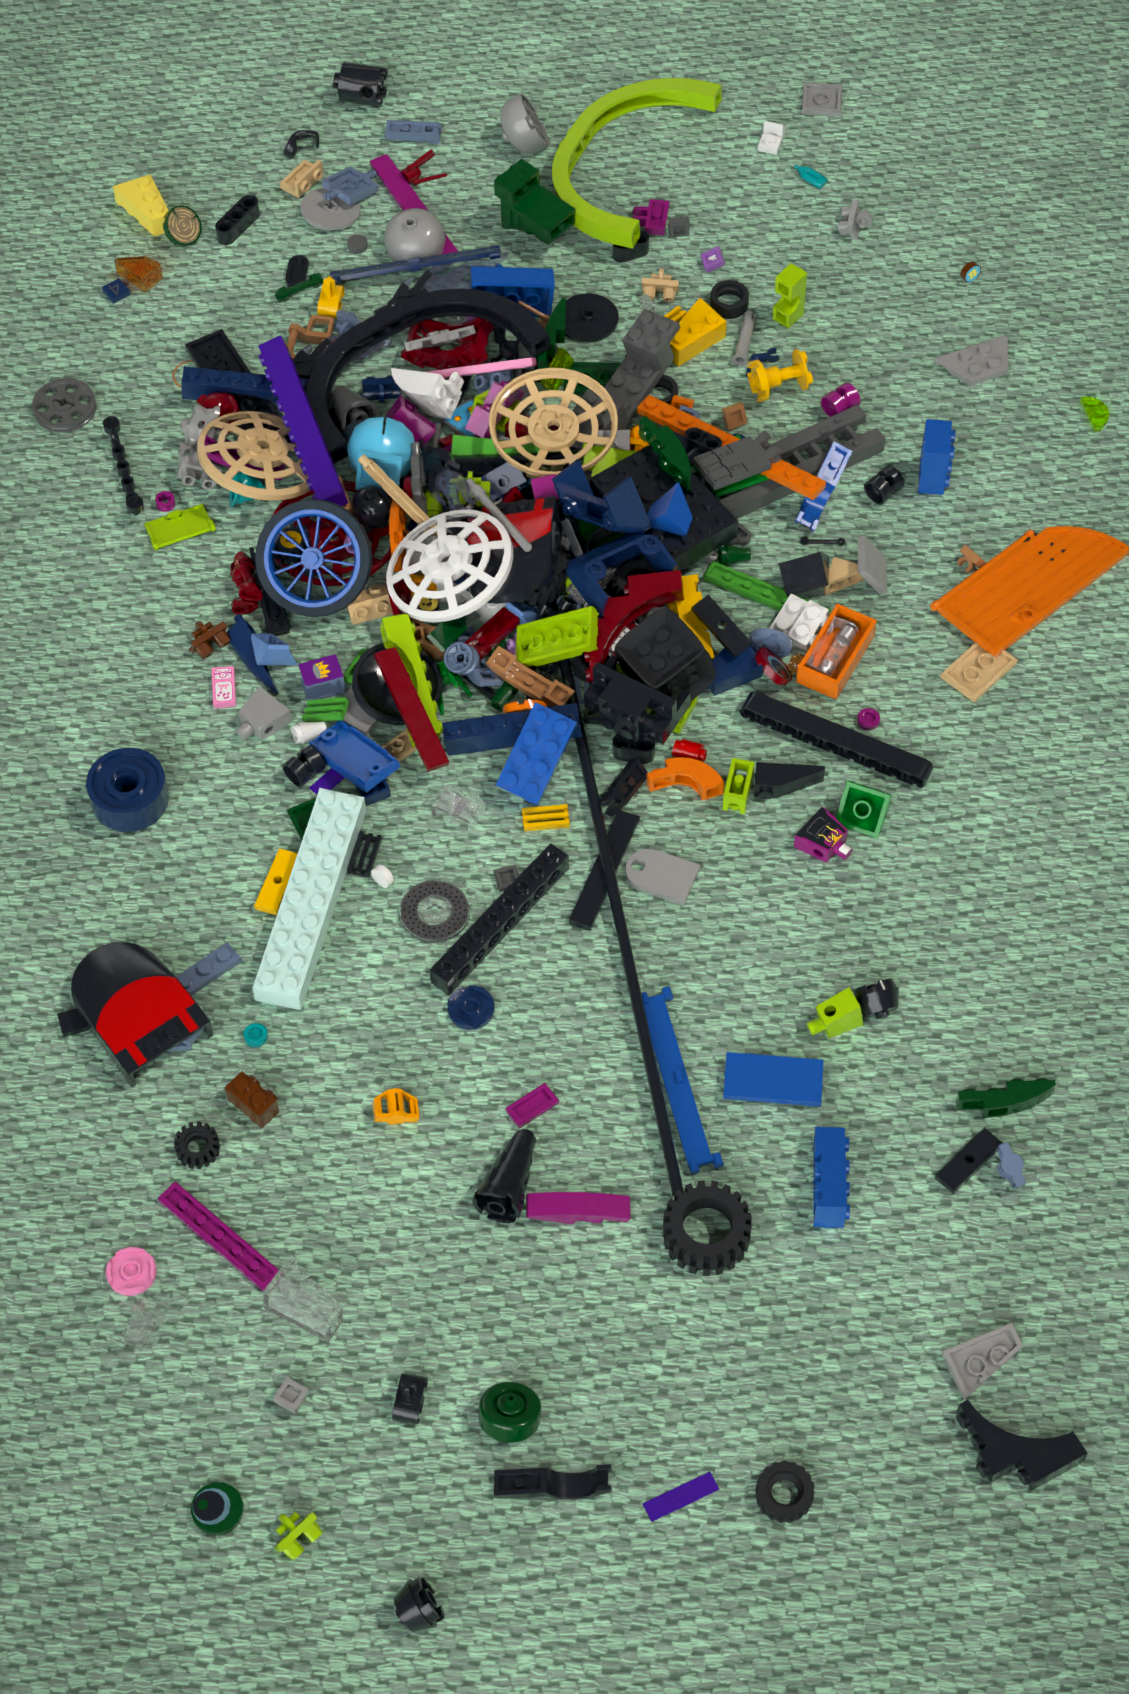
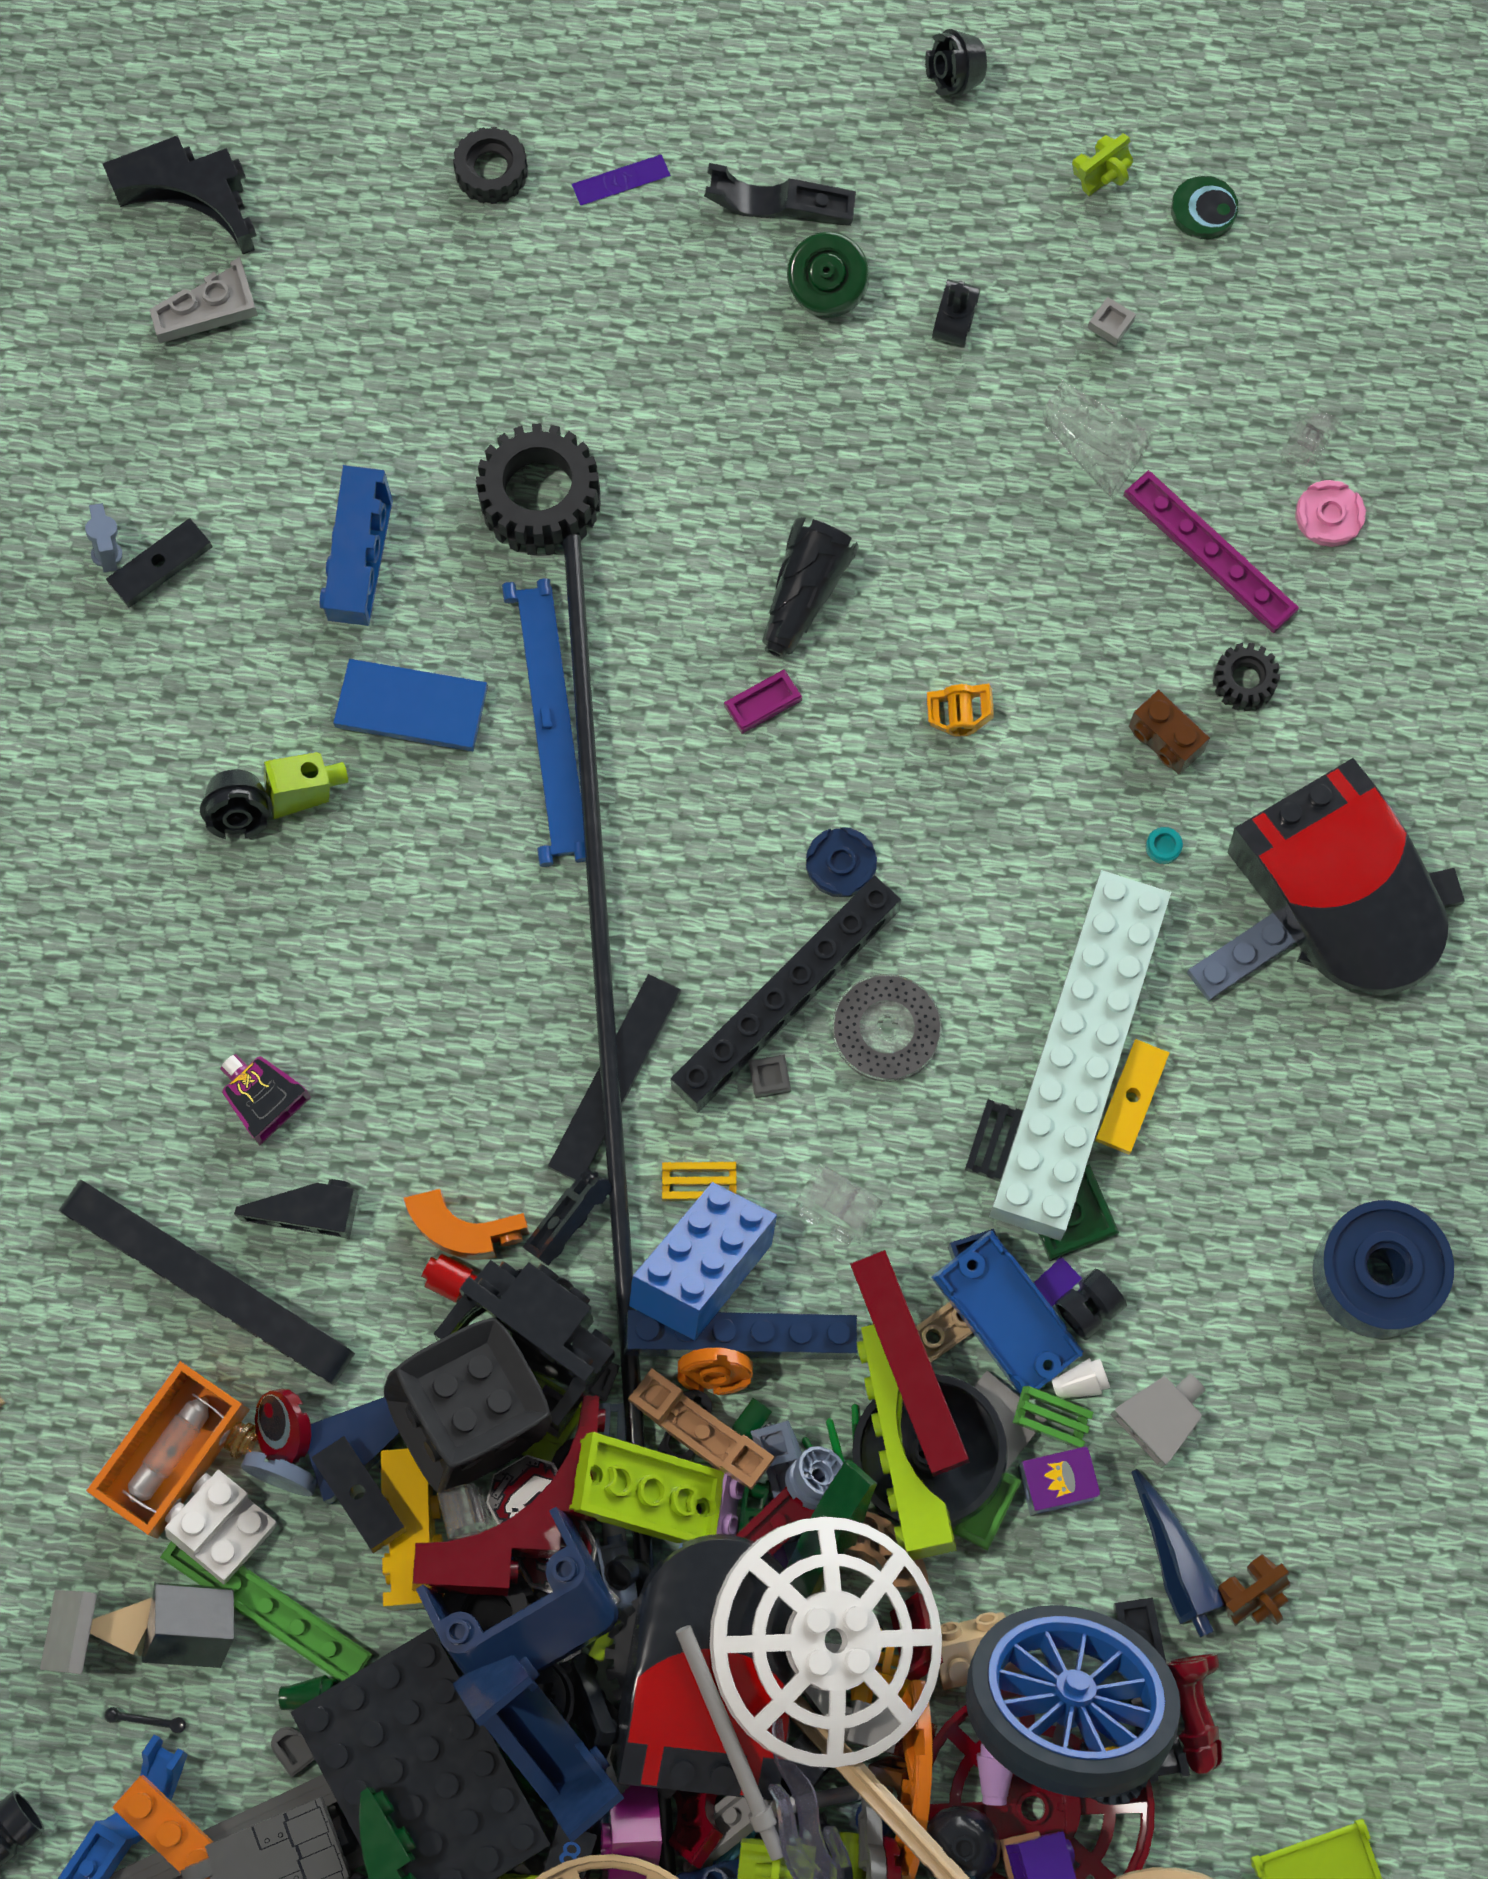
camera: 175 degrees left, 15 degrees up
(223, 687) = (1227, 1493): tile -> none
(271, 650) = (1146, 1544): medium blue slope -> none
(382, 876) = (966, 1090): white tile -> none
(577, 1206) = (713, 539): magenta slope -> none
(662, 875) = (523, 1058): light grey tile -> none
(671, 512) = (412, 1723): blue slope -> none
(738, 786) = (381, 1194): lime brick -> none
(863, 809) = (190, 1138): green slope -> none
(868, 719) = (143, 1324): magenta tile -> none
(1015, 1097) = (70, 644): dark green slope -> none

